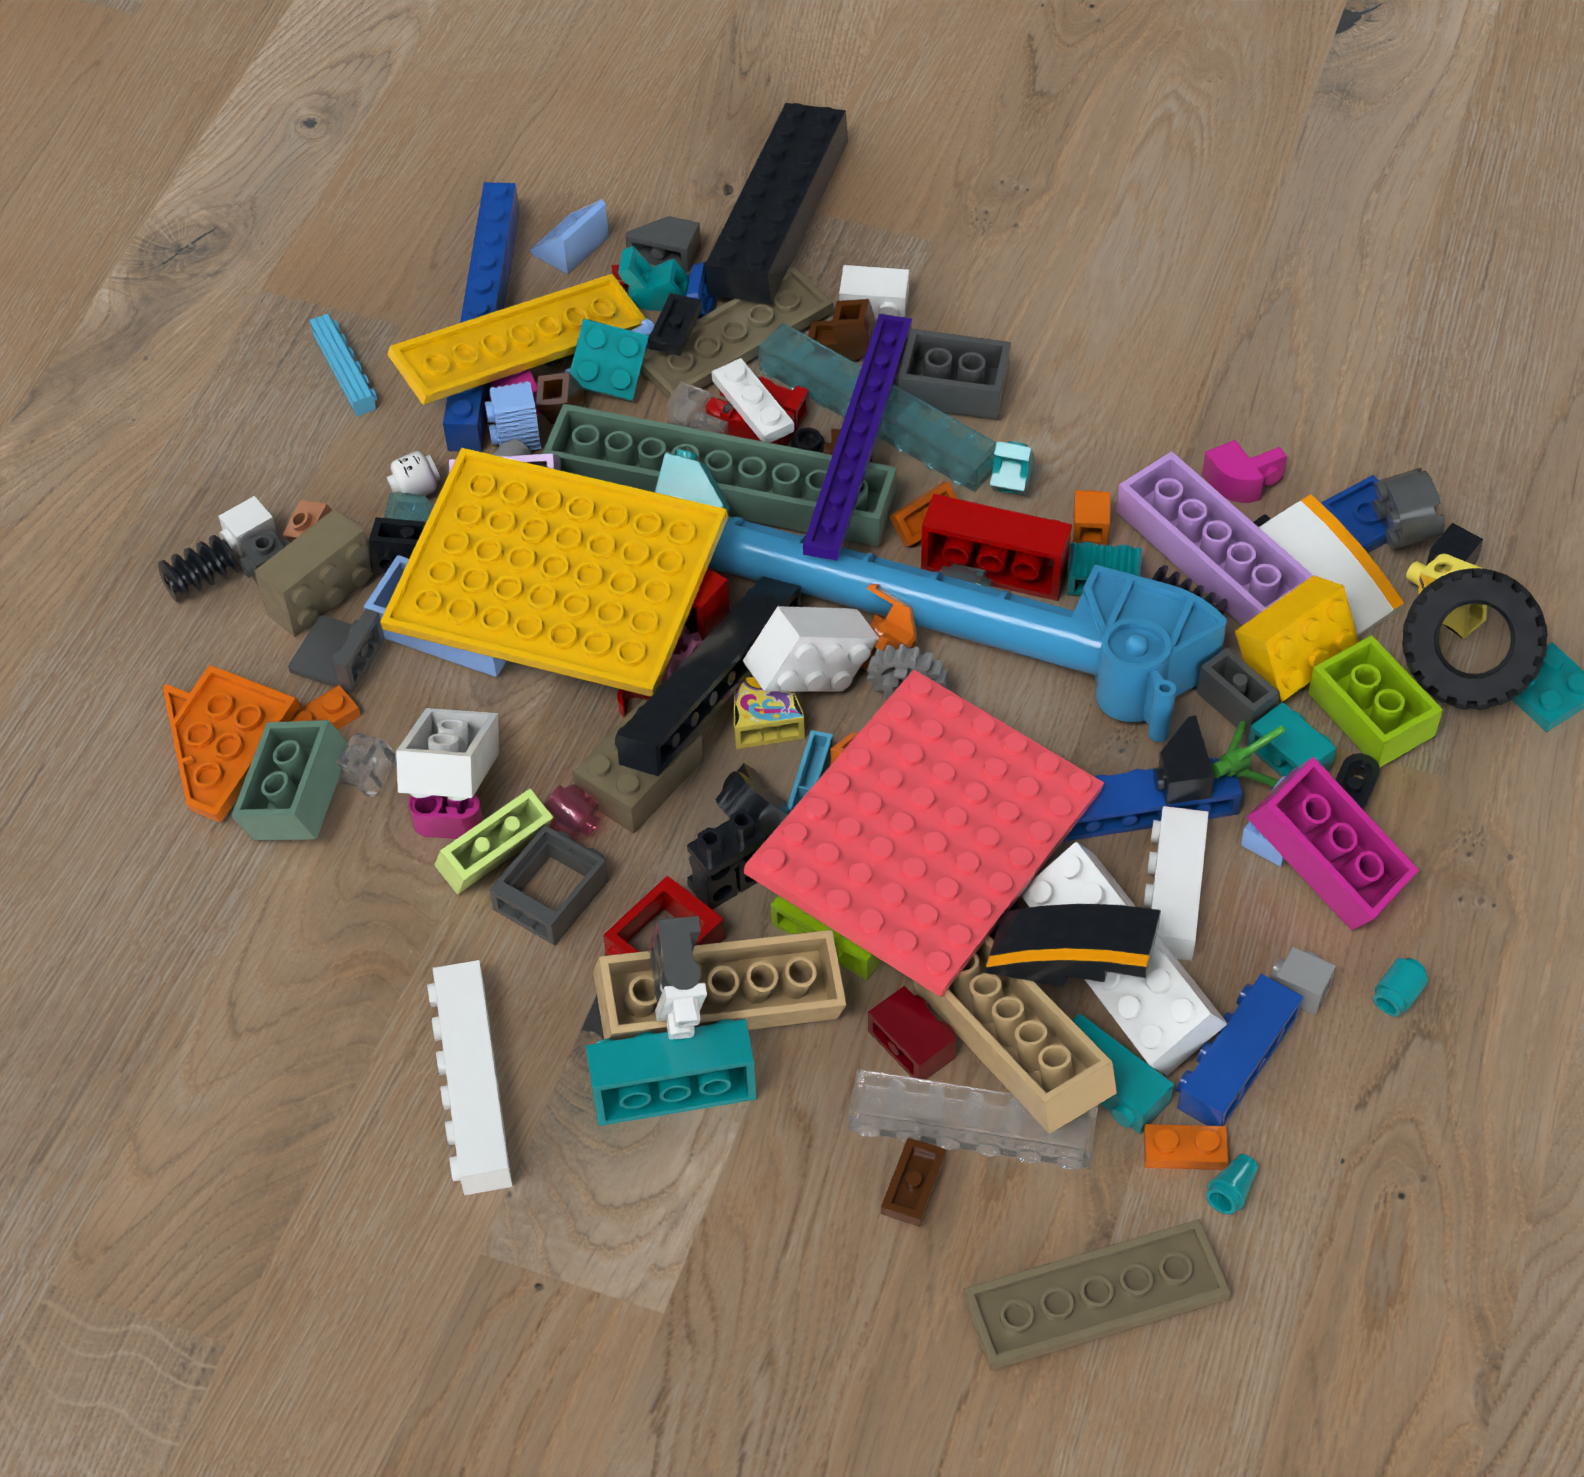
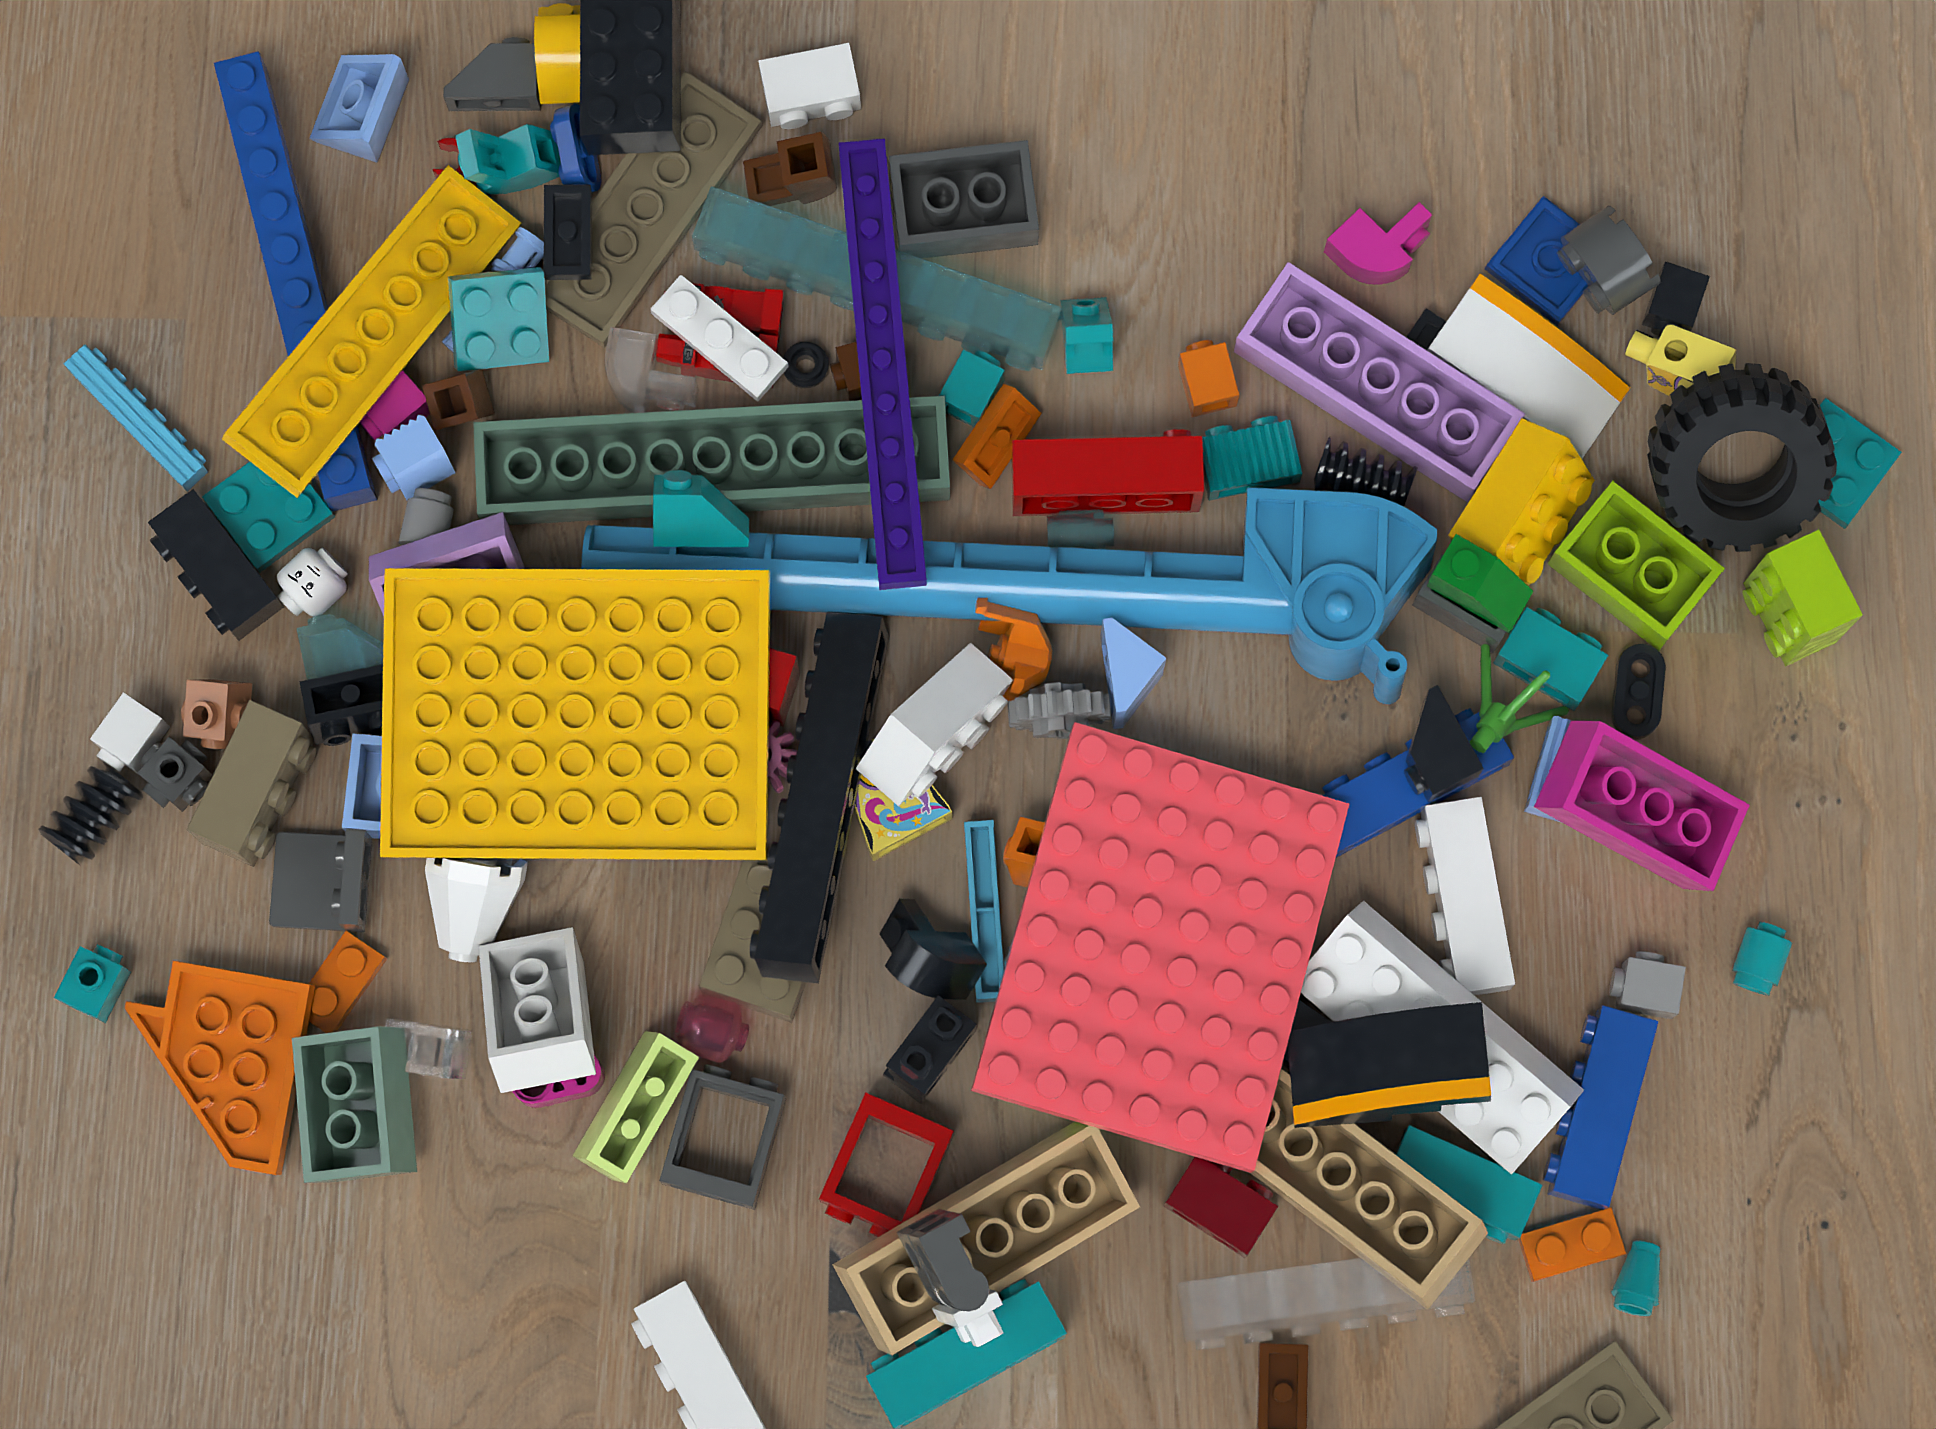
camera: 20 degrees left, 25 degrees up
(148, 667) = (93, 982): none -> teal brick
(352, 453) = (213, 566): none -> black brick
(405, 430) = (265, 515): none -> teal plate
(436, 677) = (471, 900): none -> white cone
(706, 231) = (558, 53): none -> yellow brick
(918, 477) = (972, 386): none -> teal brick
(971, 662) = (1130, 669): none -> light blue slope
(1248, 662) = (1480, 583): none -> green slope
(1497, 741) = (1801, 598): none -> lime brick

